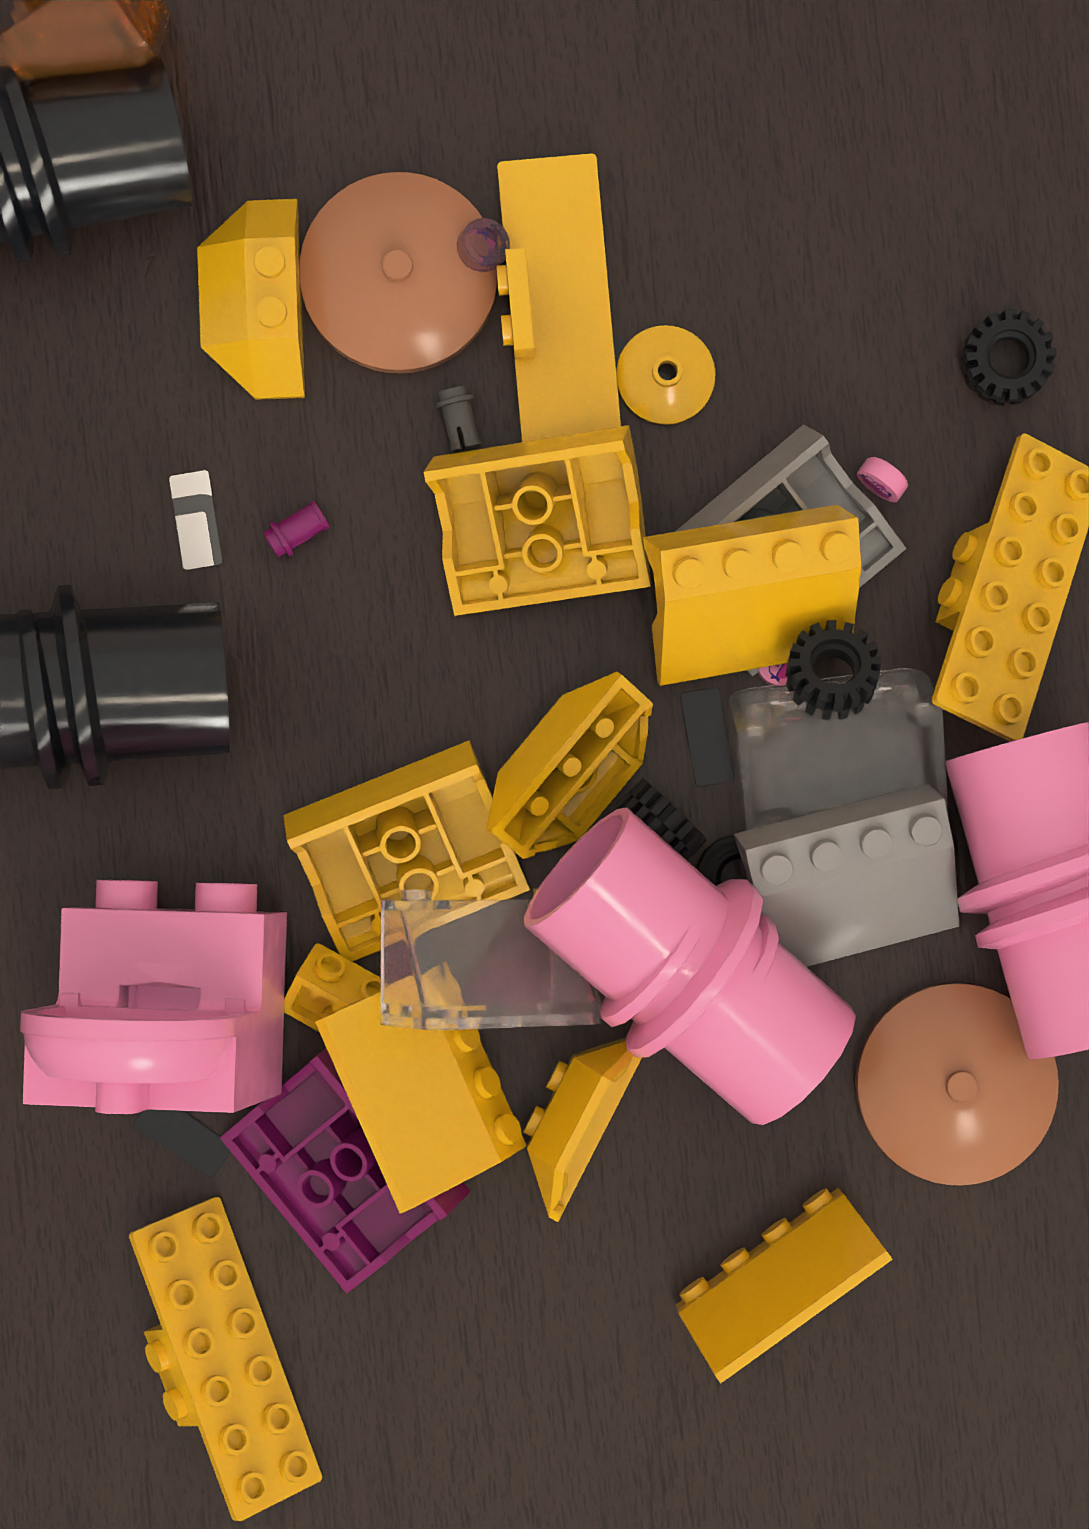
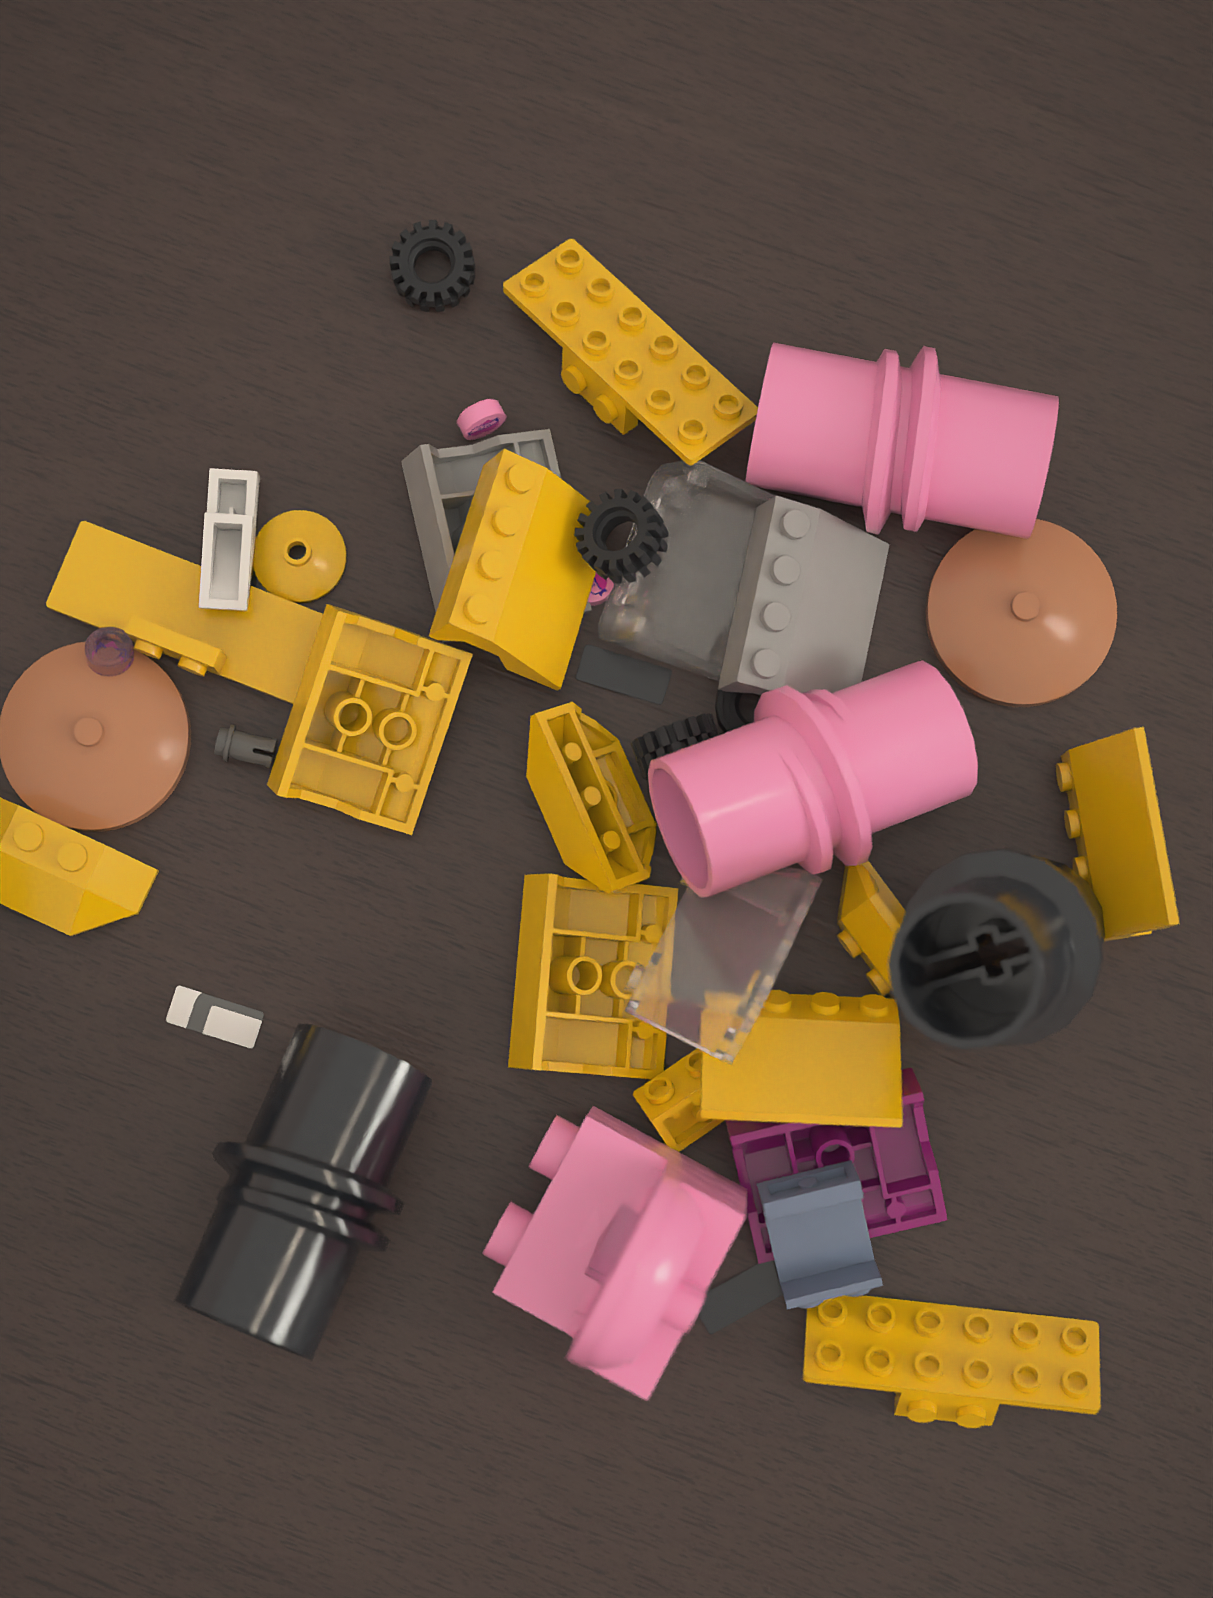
camera: 60 degrees left, 5 degrees down
(270, 1183) = (819, 1235): none -> sand blue panel
(295, 529) = (268, 933): magenta pin -> none
(551, 1238) = (999, 998): none -> black piece
(645, 301) = (229, 539): none -> white slope

